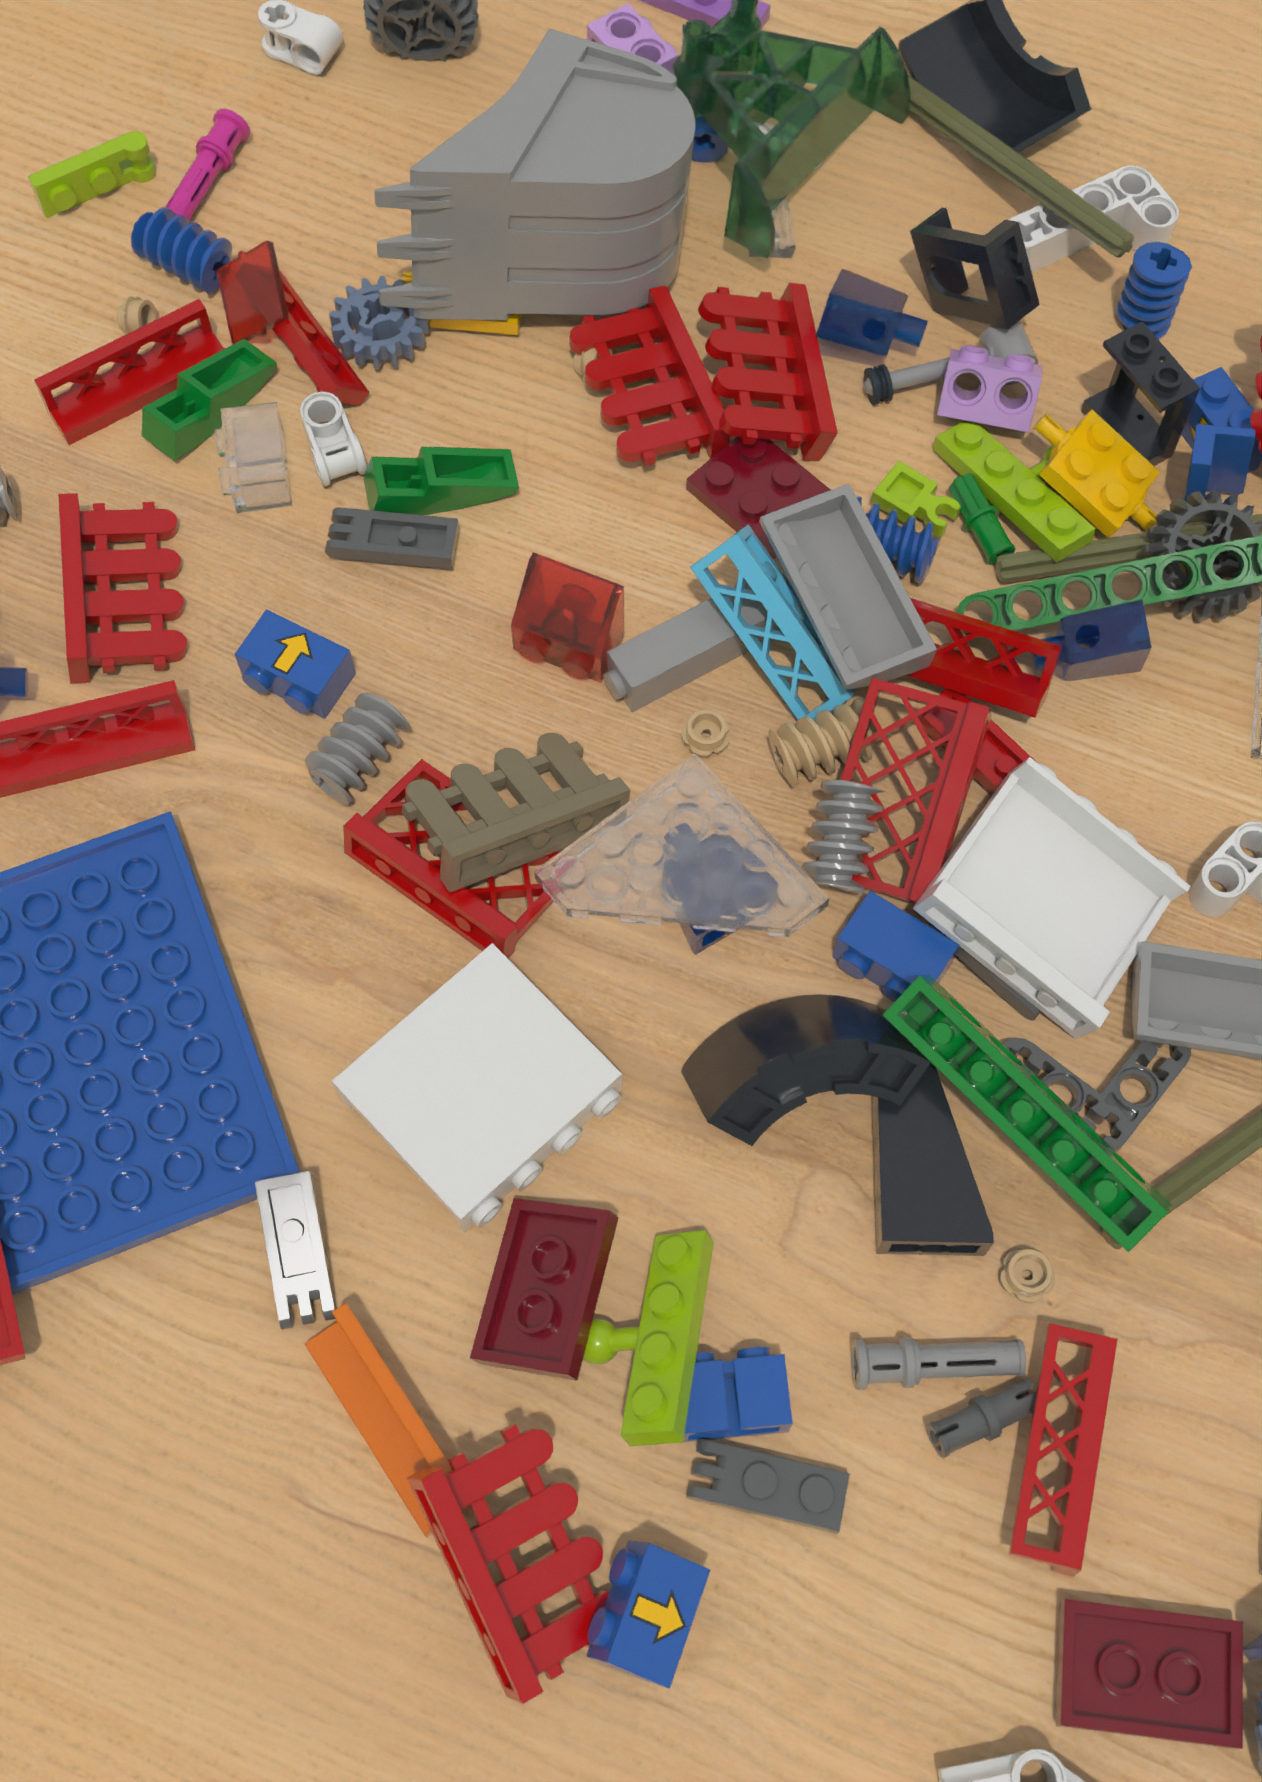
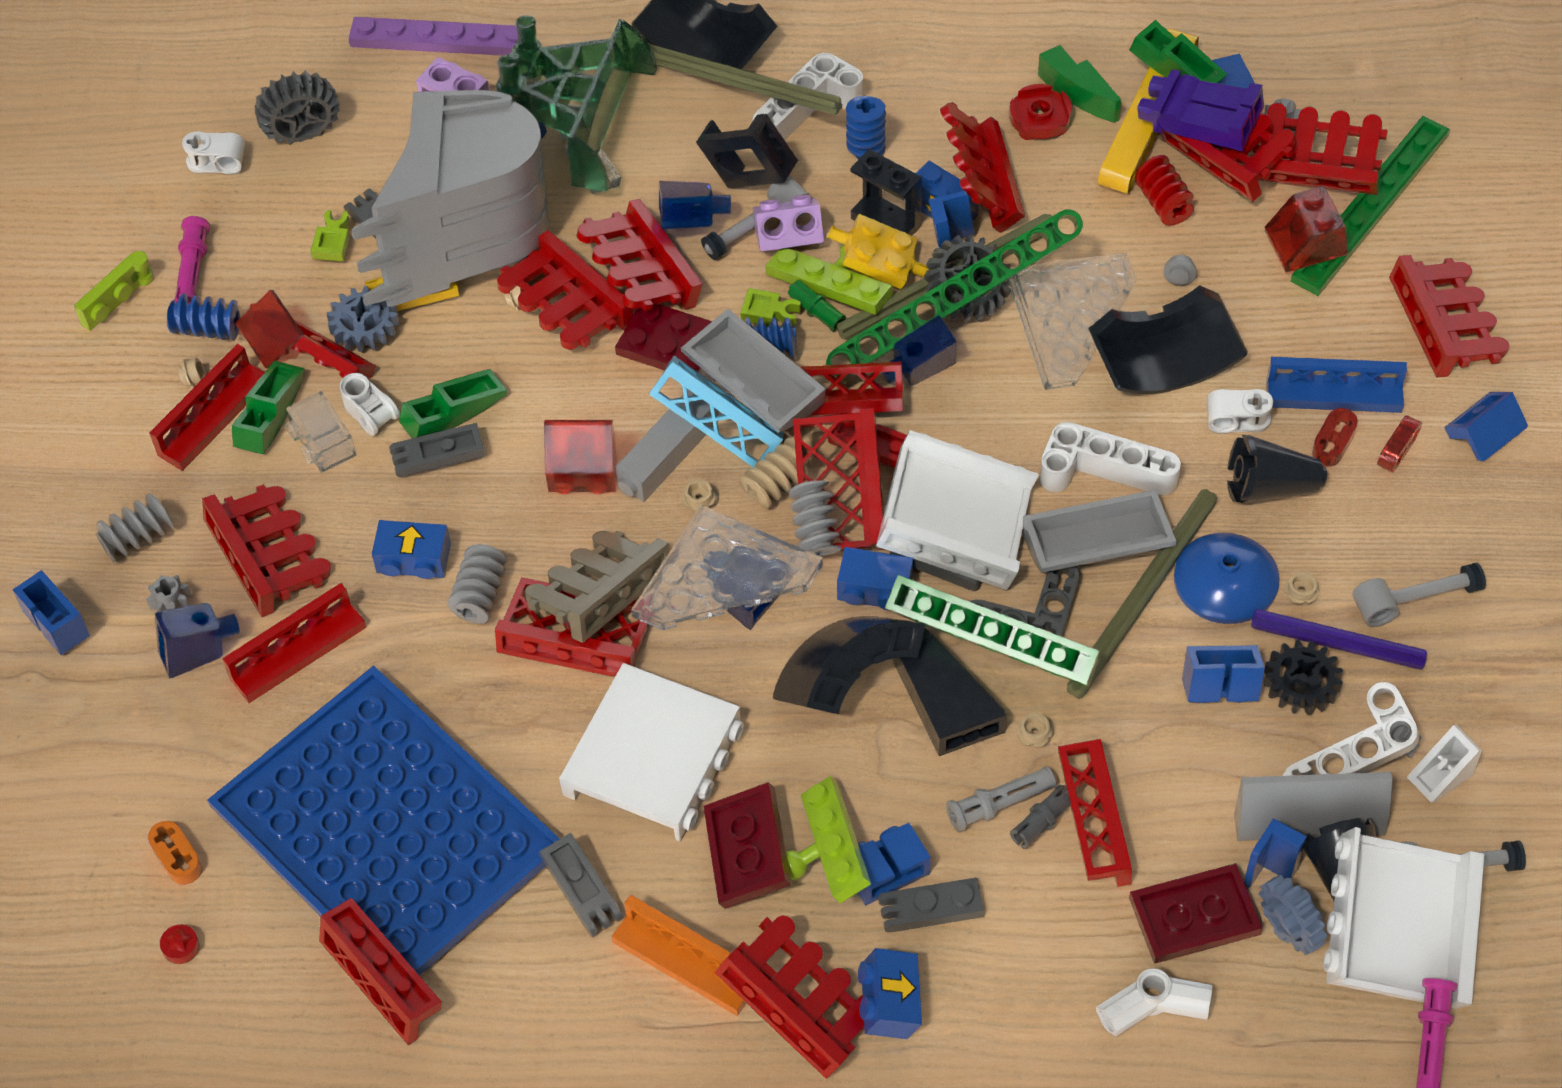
camera: 20 degrees left, 10 degrees down
(384, 219) = (331, 241): none -> lime plate

